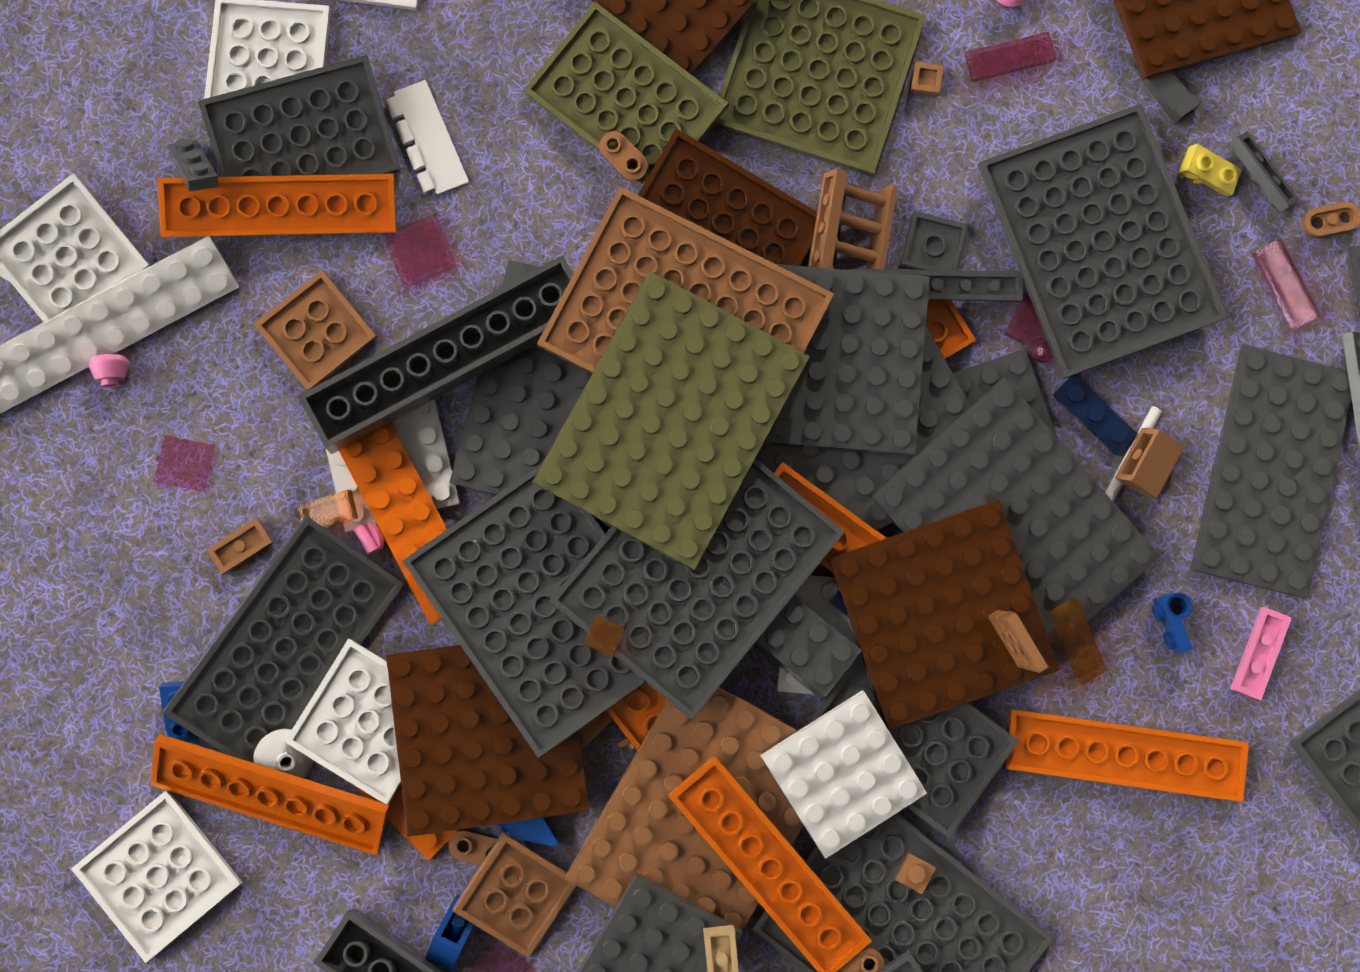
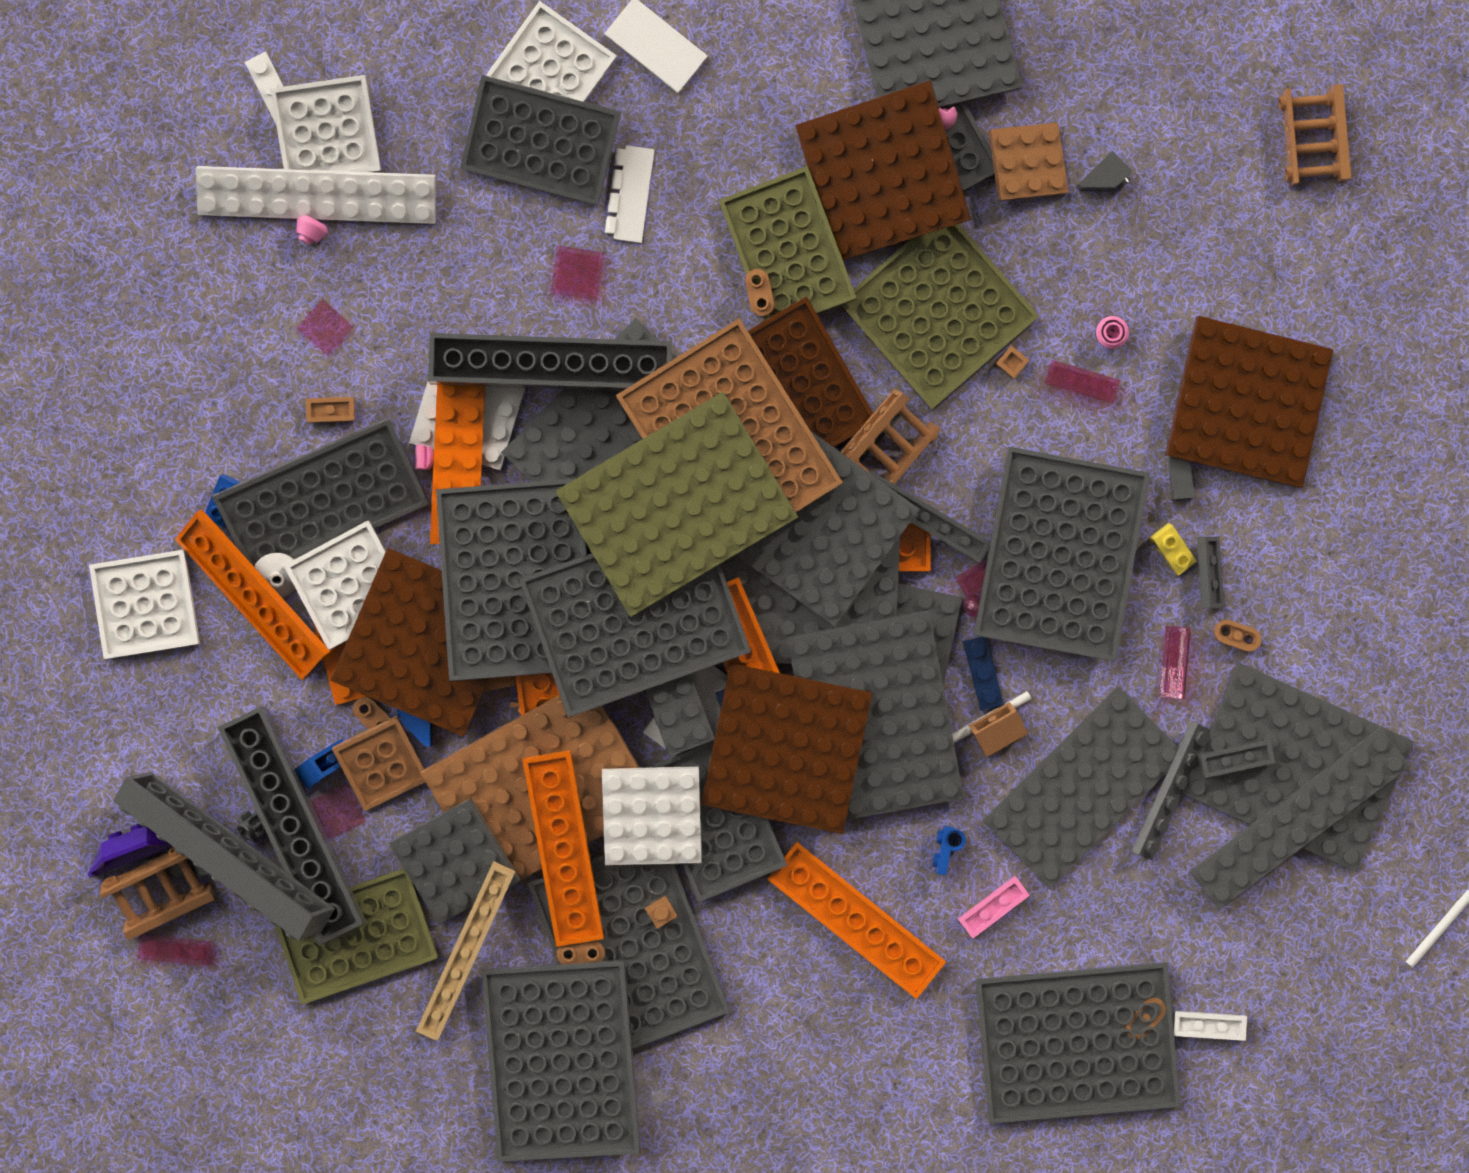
camera: 30 degrees right, 5 degrees up
(193, 165) = (452, 119): dark grey plate -> none
(279, 205) = (495, 182): orange plate -> none
(315, 330) = (470, 287): medium nougat plate -> none
(330, 509) = (407, 422): clear orange tile -> none
(604, 636) = (541, 625): clear orange tile -> none
(933, 243) = (943, 484): dark grey tile -> none
(1017, 641) = (820, 797): medium nougat tile -> none
(1078, 641) = (870, 822): clear orange tile -> none

